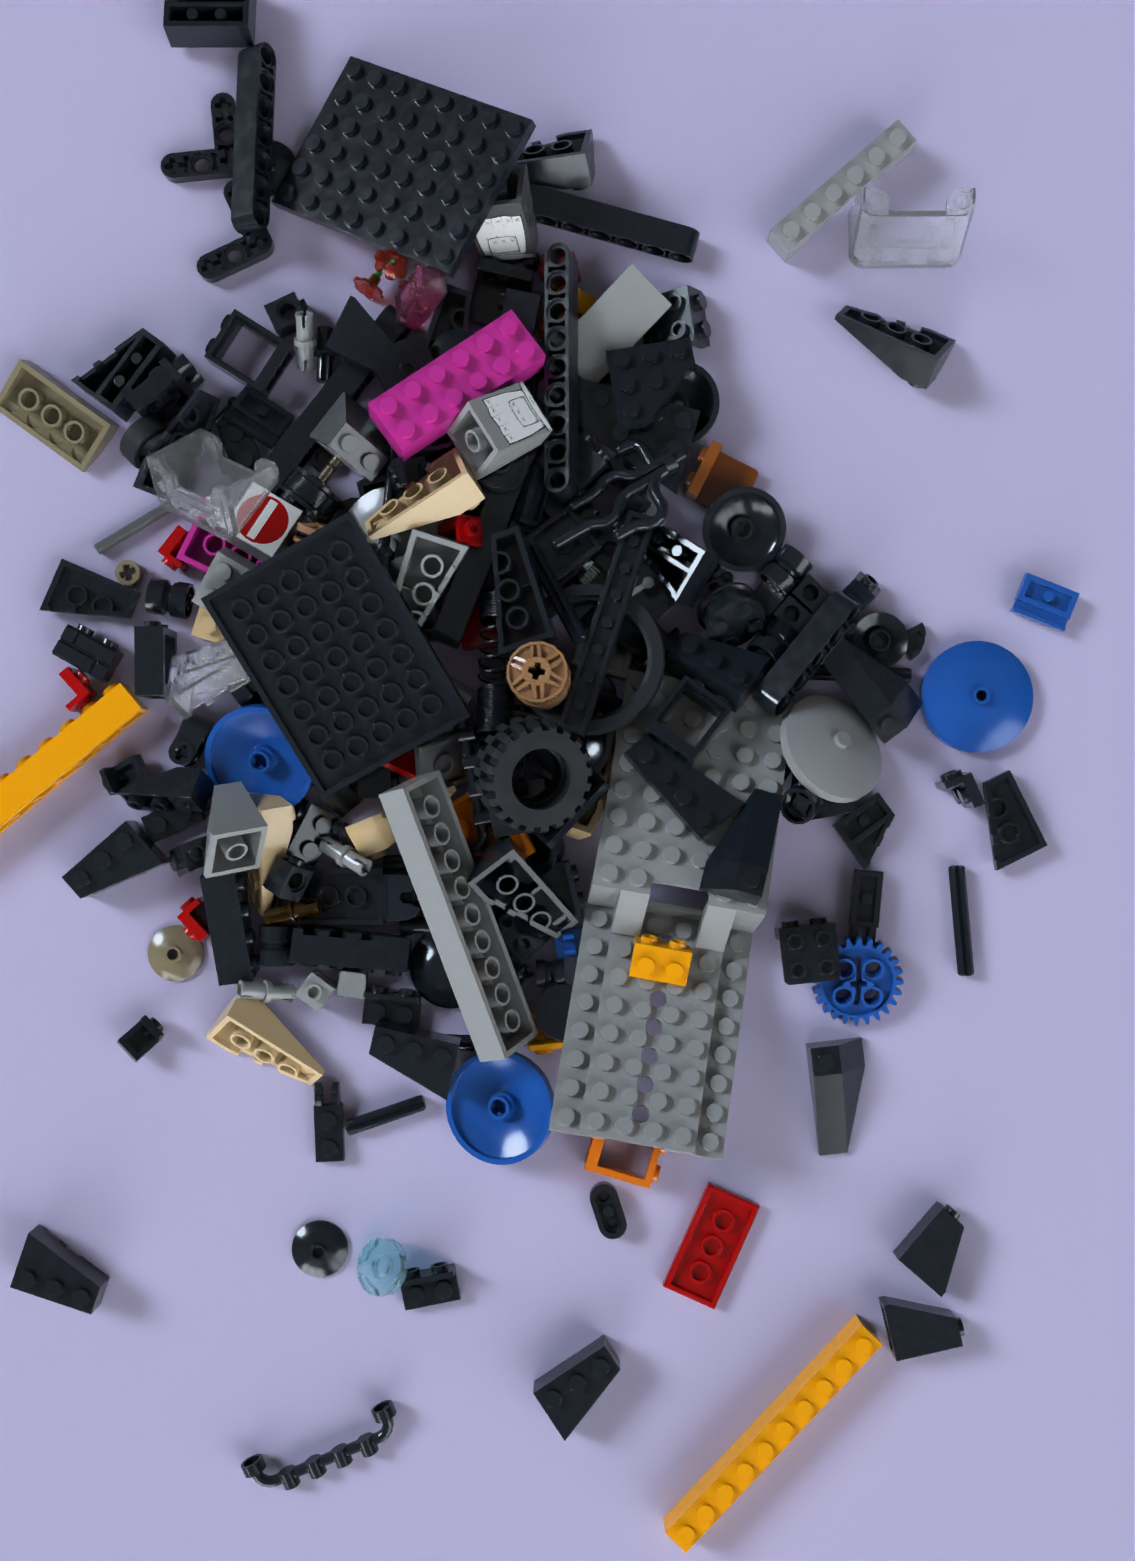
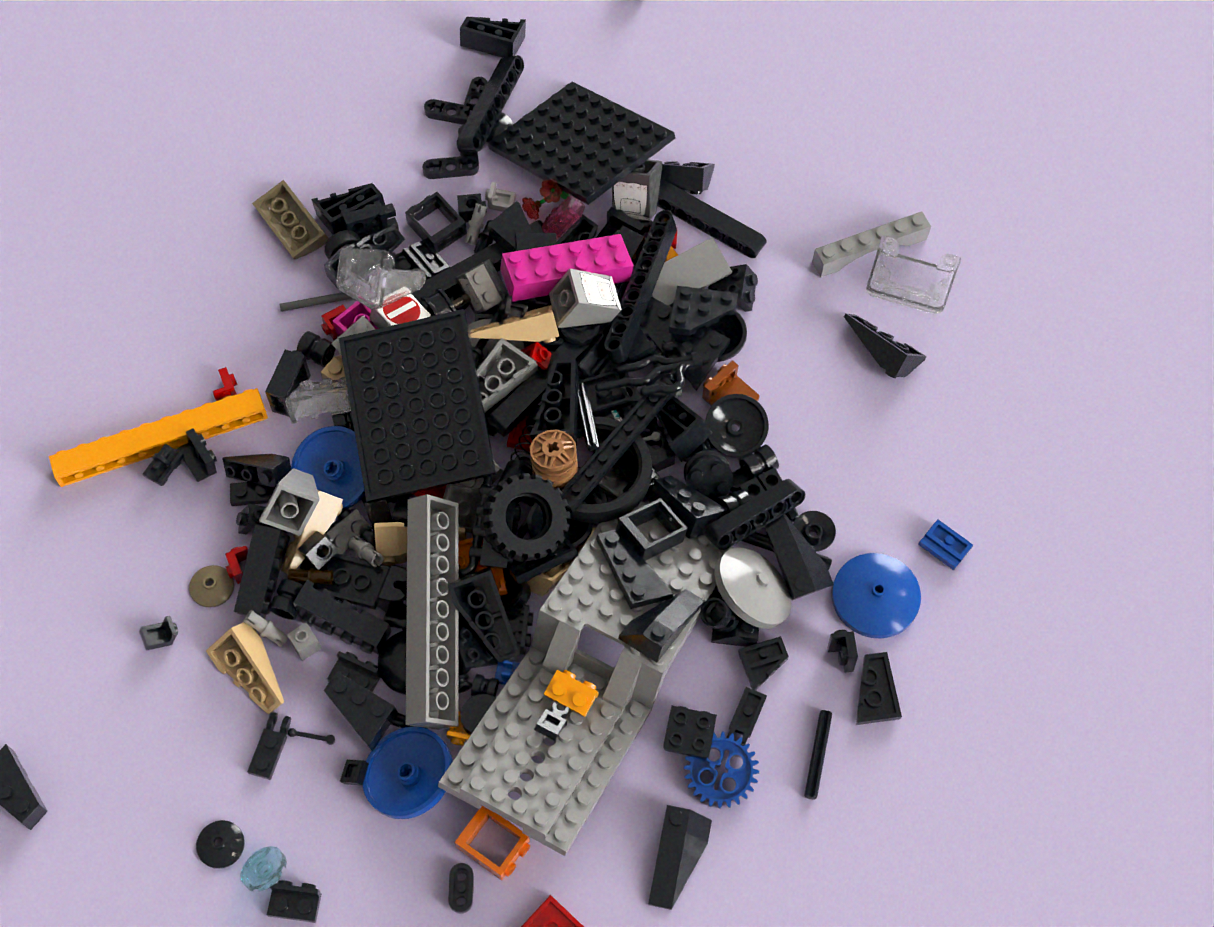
camera: 20 degrees right, 25 degrees down
(48, 824) = (163, 465): none -> black hips
(84, 799) = (197, 457): none -> black bracket
(87, 652) = (244, 366): black brick -> none
(88, 593) = (261, 330): black wing -> none
(115, 860) = (197, 505): black wedge -> none
(124, 774) = (236, 448): black bracket -> none
(136, 577) = (291, 323): dark tan bush -> none
(192, 738) = (288, 441): black piece -> none
(322, 287) = (498, 198): none -> light grey bracket
(352, 983) = (331, 646): slope -> none
(385, 1115) = (315, 754): black axle -> none
(393, 1091) = (330, 739): none -> black hinge
(438, 1122) = (354, 772): none -> black tile
(652, 1011) = (552, 721): none -> plate
(862, 589) = (813, 494): black bracket -> none
(916, 640) = (840, 542): black tile -> none

